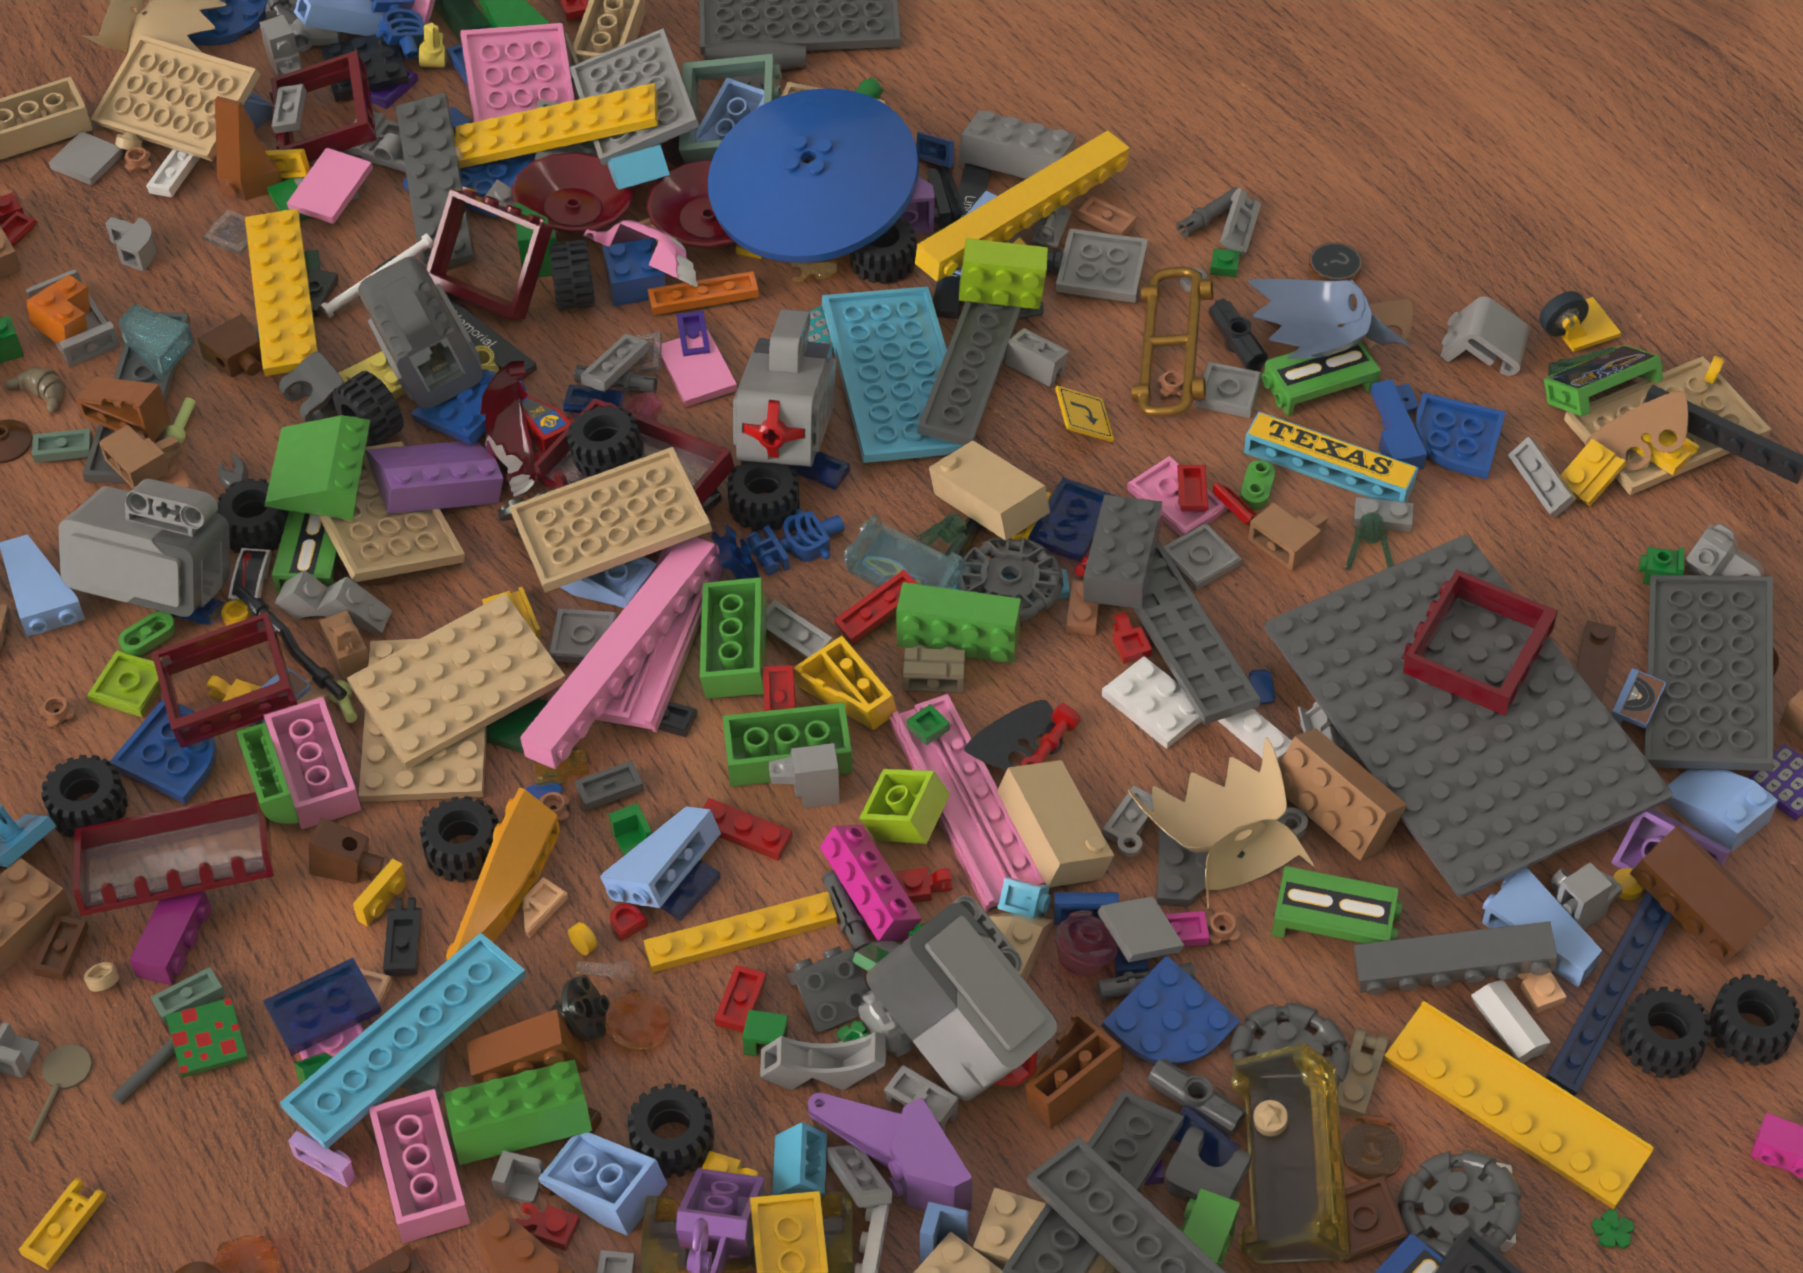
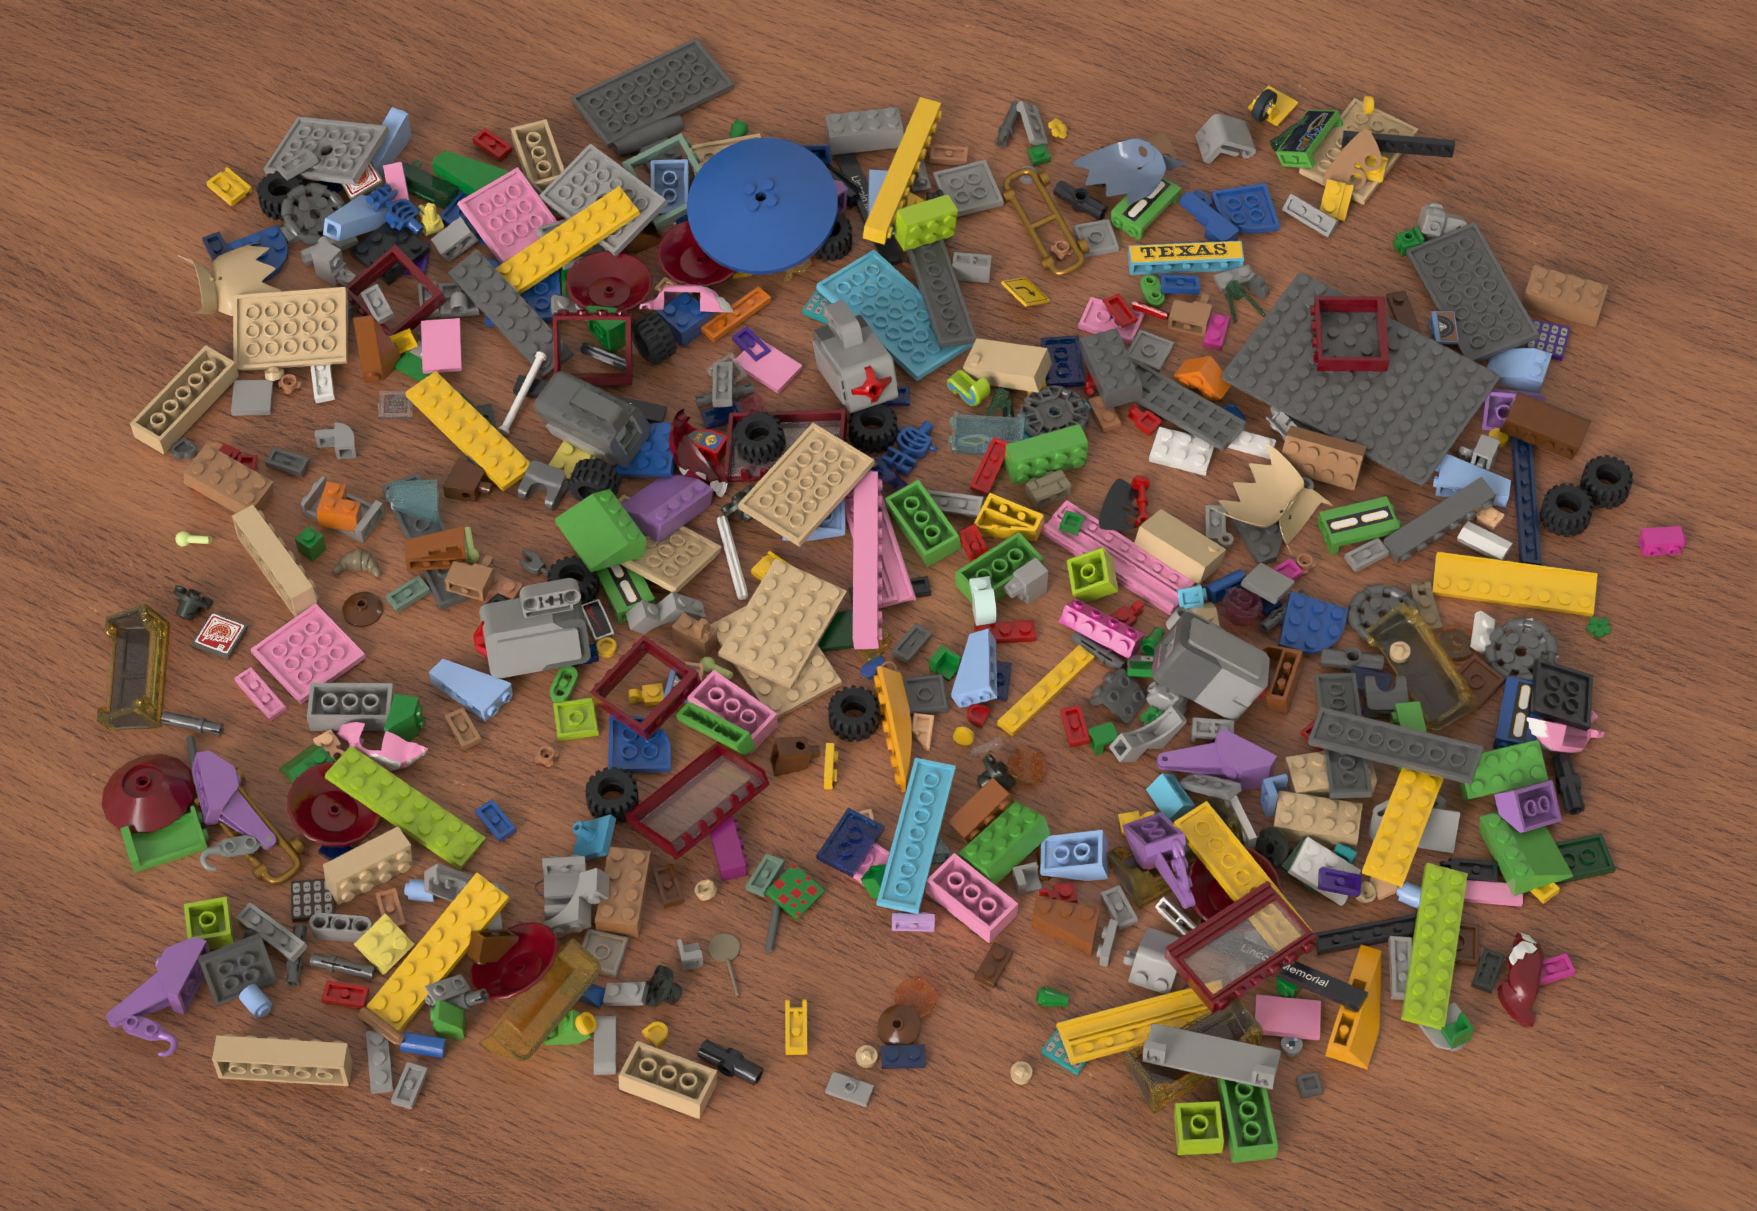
camera: 30 degrees left, 5 degrees up
(60, 241) = (287, 462): none -> dark grey plate
(321, 676) = (696, 659): black bar -> none
(402, 939) = (861, 785): black hinge -> none
(440, 76) = (454, 239): none -> light grey brick
(473, 571) = (732, 557): none -> white axle
(508, 272) = (603, 355): none -> black axle
(577, 633) = (829, 562): light grey plate -> none
(577, 861) = (926, 694): none -> dark grey tile
(638, 167) = (642, 248): medium azure brick -> none
(665, 1107) = (1096, 799): black tyre -> none
(727, 770) = (983, 601): none -> light aqua brick
(924, 500) = (969, 390): none -> lime animal
(1245, 613) = (1204, 375): none -> orange brick
(1271, 239) = (1058, 128): none -> yellow plant
(1299, 489) = (1179, 284): none -> blue plate
(1310, 569) = (1216, 331): none -> dark pink plate
(1320, 958) = (1366, 555): none -> light grey plate
(1335, 262) = (1104, 127): black tile -> none
(1406, 536) = (1258, 287): none -> dark grey tile
(1424, 1143) = (1481, 631): none -> white plate

